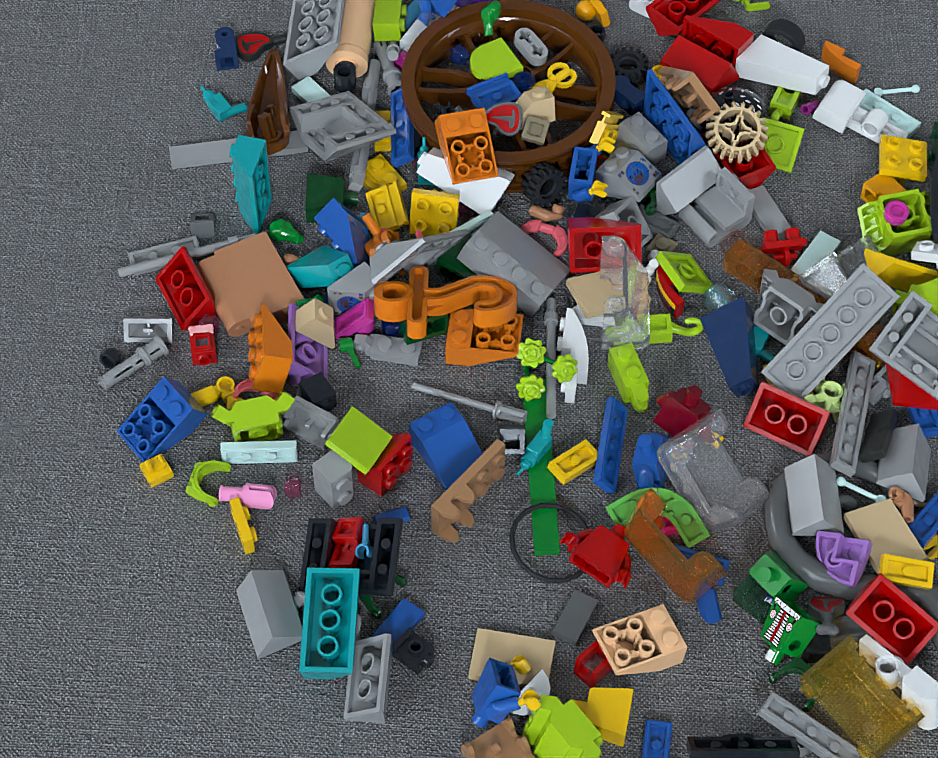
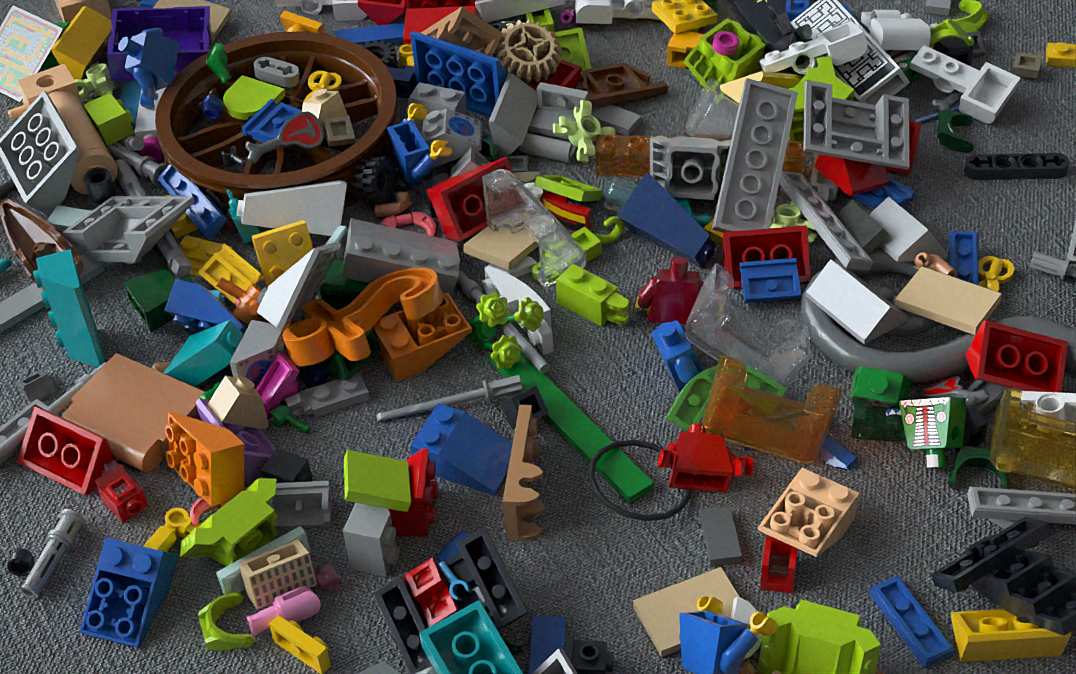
camera: 30 degrees left, 10 degrees down
(145, 327) = (44, 511): light grey slope -> none
(156, 470) = (156, 645): yellow tile -> none
(259, 466) = (277, 573): none -> tan brick
(284, 231) = (136, 348): green animal -> none
(466, 146) = (281, 168): orange slope -> none
(524, 85) = (293, 98): clear blue plate -> none
(537, 447) = (556, 398): teal piece -> none
(573, 462) = (601, 396): yellow plate -> none
(606, 127) = (401, 102): yellow plate -> none
(608, 712) = (836, 590): yellow torso -> none
(610, 445) = (624, 364): blue tile -> none
(640, 39) = (389, 33): none -> blue tile
(738, 224) = (583, 131): none -> yellowish green pin
(774, 440) = (770, 281): none -> blue plate
(792, 243) = (642, 122): red hips -> none
(798, 196) = (618, 84): none -> reddish brown wing
(818, 249) = (671, 119): light aqua tile -> none
(841, 481) = (866, 277): light aqua hinge -> none
(843, 556) = (928, 333): medium lavender brick -> none
(907, 571) = (1001, 309): yellow plate -> none

